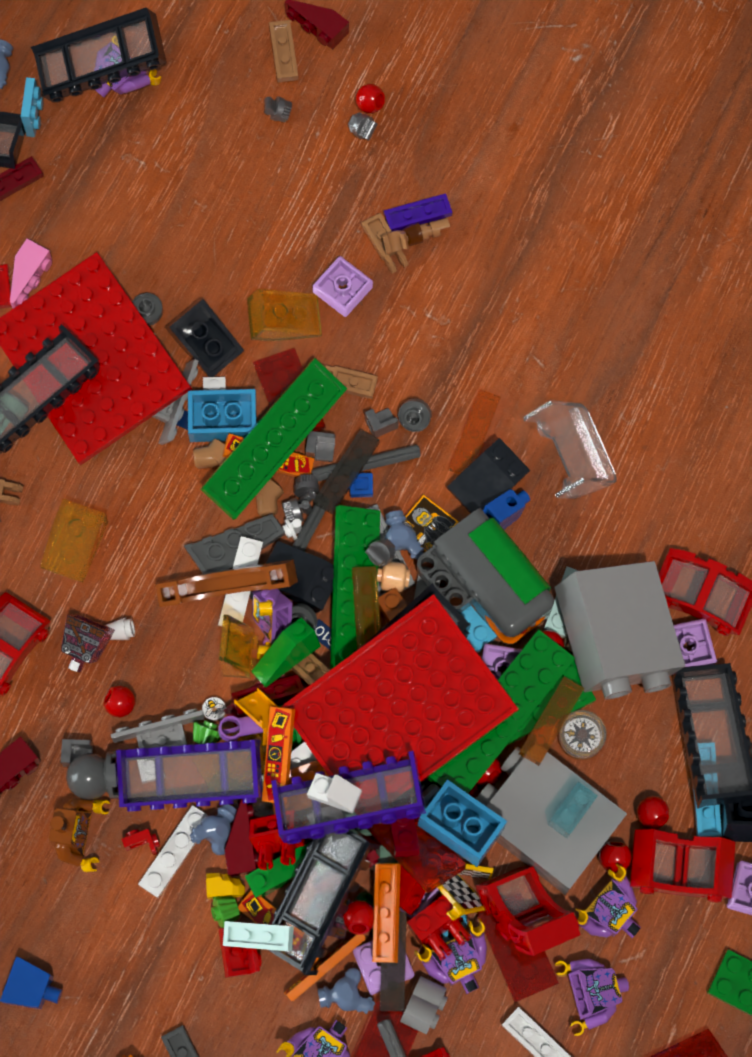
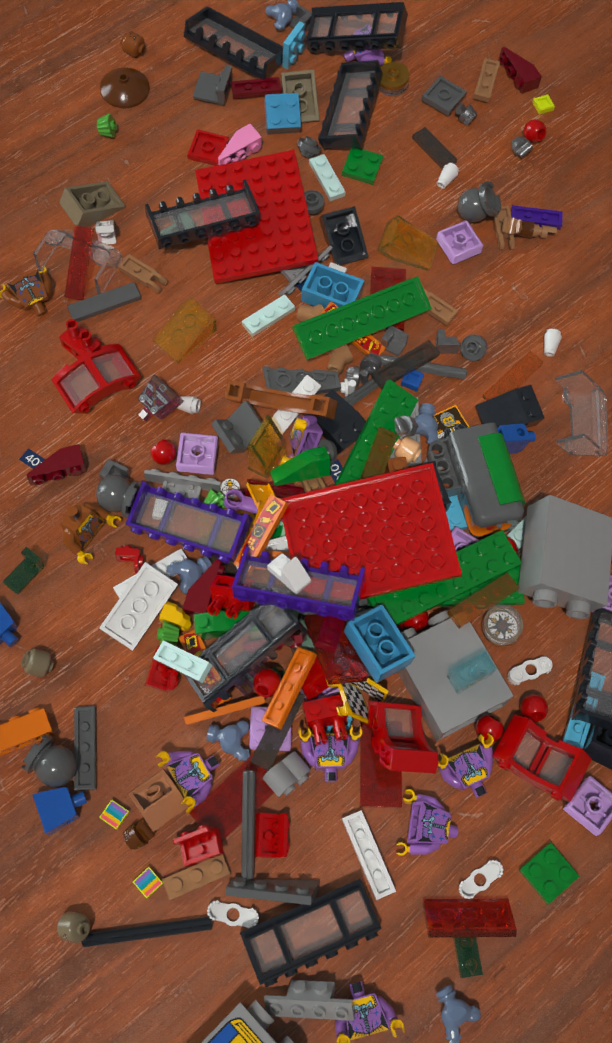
camera: 20 degrees right, 5 degrees down
(22, 63) = (303, 16): none -> flat silver panel
(30, 912) = (24, 572): none -> clear green bracket
(59, 207) = (282, 113): none -> dark azure brick
(69, 174) = (304, 84): none -> dark tan slope
(96, 1007) = (37, 662): none -> dark tan head
(110, 236) = (308, 146): none -> dark grey plate
(136, 159) = (351, 105): none -> window
(145, 679) = (193, 443): none -> lavender brick
(149, 266) = (327, 177): none -> light aqua plate
(160, 477) = (268, 315): none -> light aqua plate
(170, 98) = (394, 79): none -> pearl gold piece
(178, 894) = (138, 606): none -> white plate
(184, 231) = (362, 165): none -> green plate
(193, 635) = (238, 428): none -> dark grey bracket
(241, 94) = (444, 95): none -> dark grey plate
(260, 171) = (434, 147): none -> clear smoke tile
(291, 202) = (447, 175): none -> white cone
(345, 228) = (479, 202): none -> dark grey tile
(365, 54) = (543, 104): none -> neon yellow tile
(499, 367) = (551, 341): none -> white cone
(622, 781) = (518, 674): none -> white piece
(679, 1008) = (491, 871): none -> white piece

